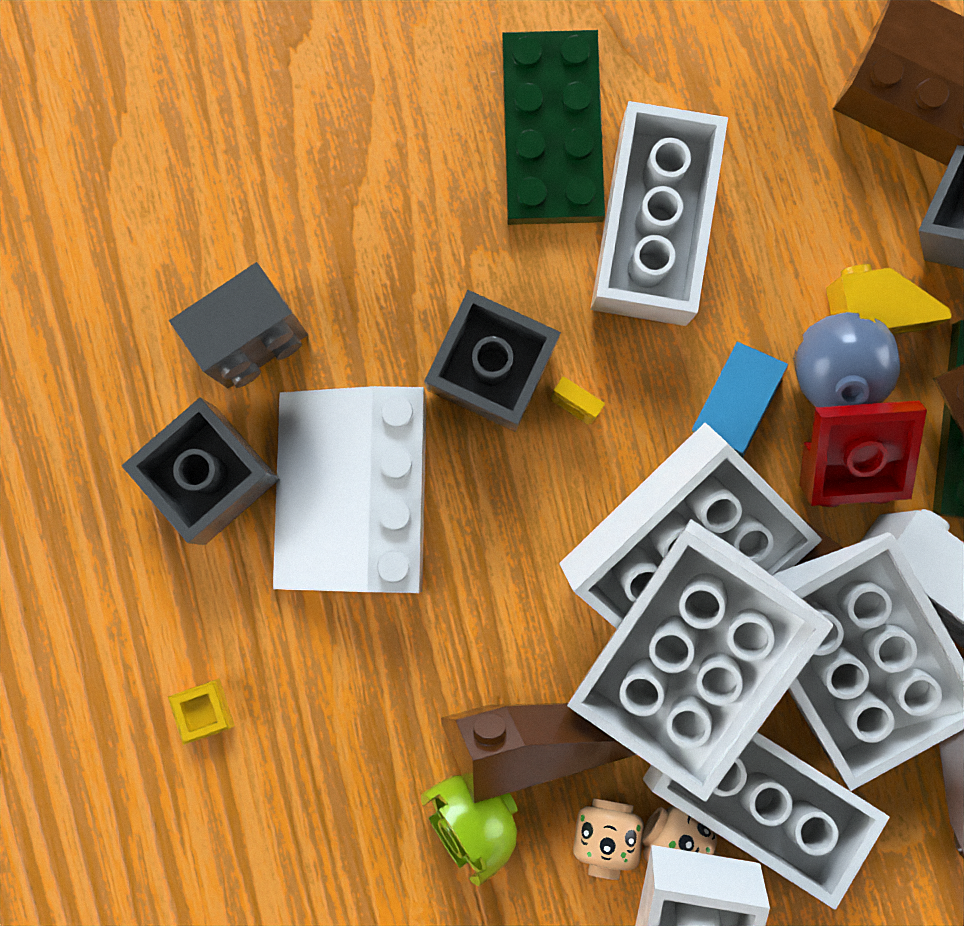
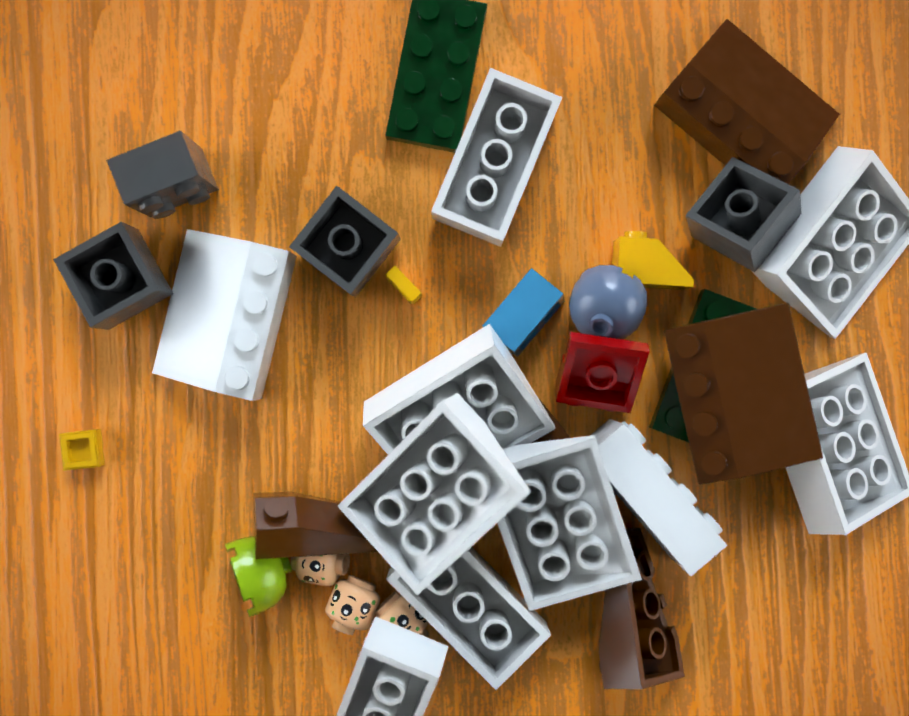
camera: 10 degrees right, 5 degrees up
(555, 799) = (320, 569): none -> light nougat head

